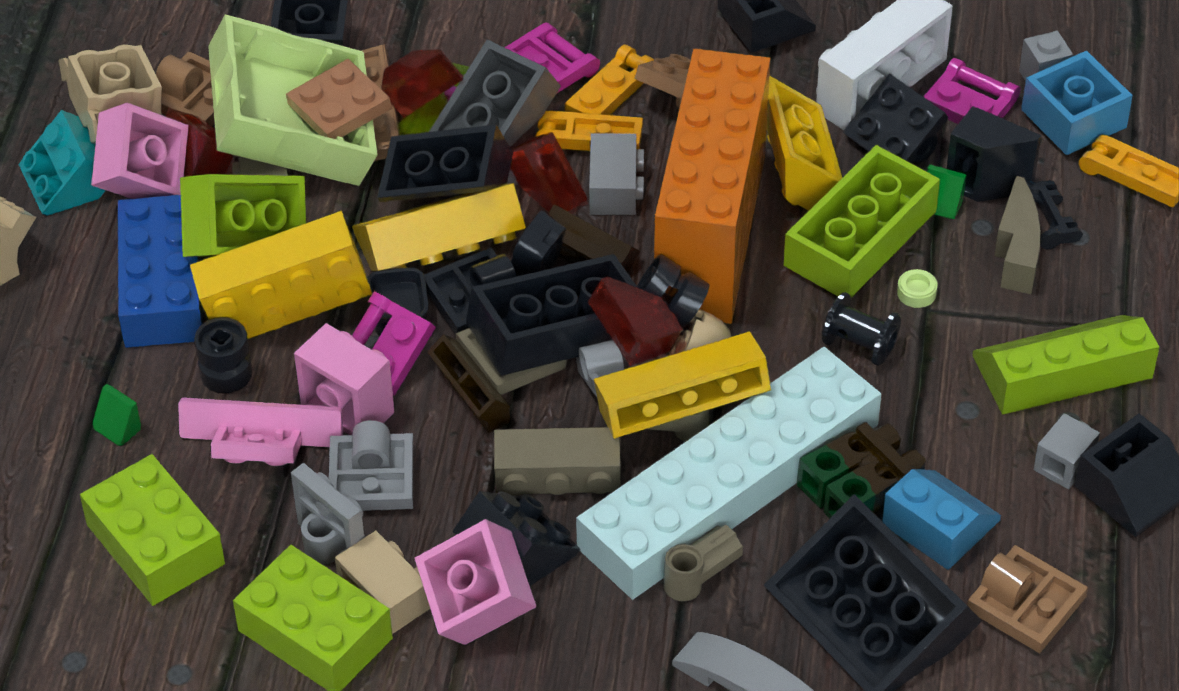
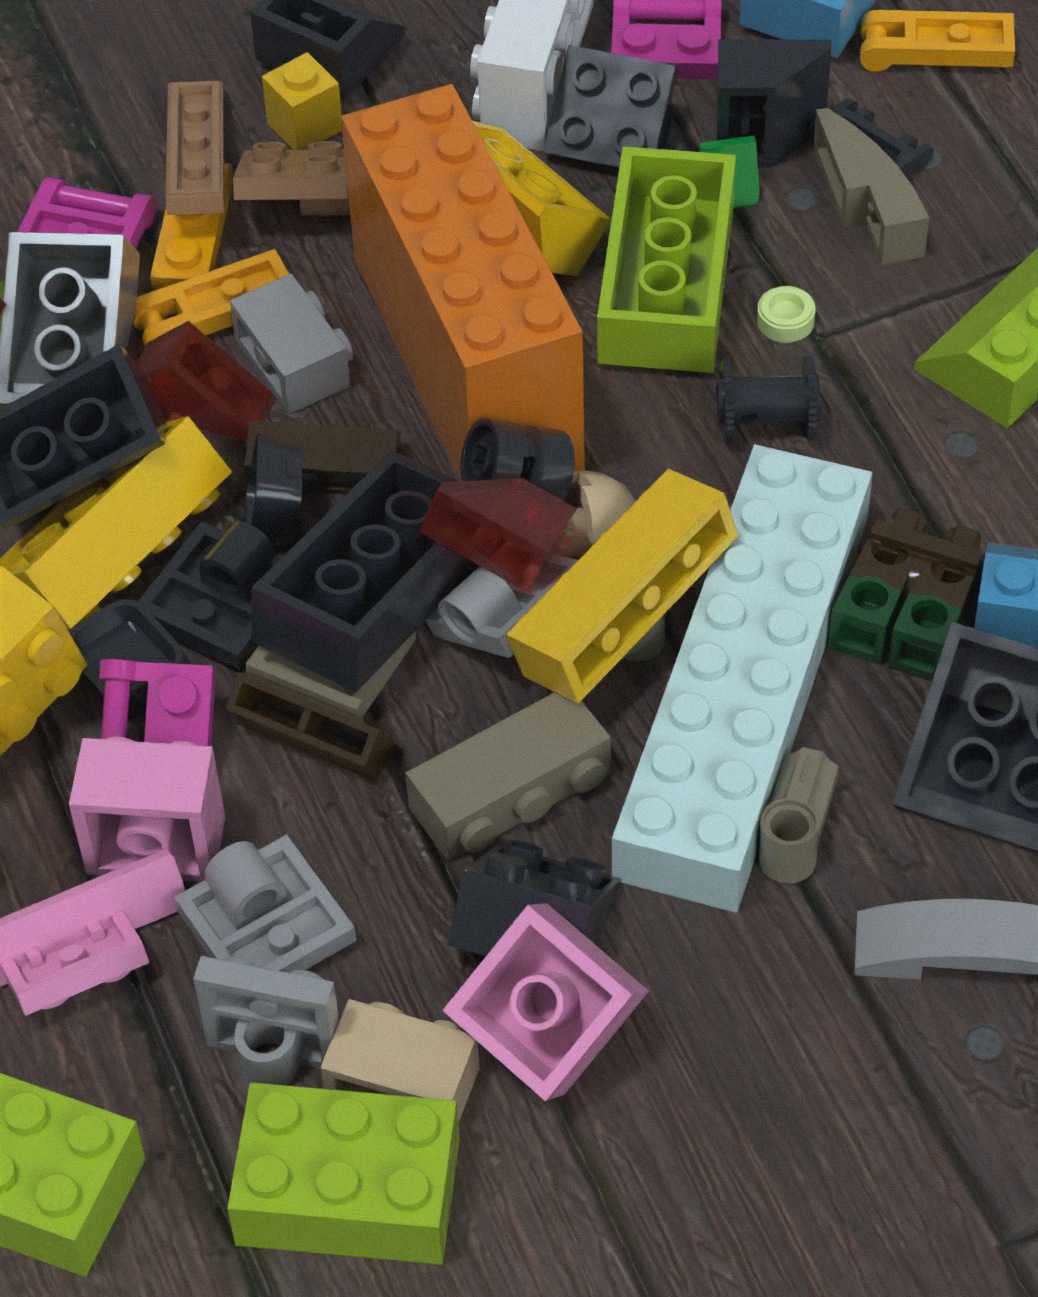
camera: 30 degrees left, 5 degrees up
(639, 41) = (195, 148): none -> medium nougat tile
(720, 33) = (302, 102): none -> yellow brick

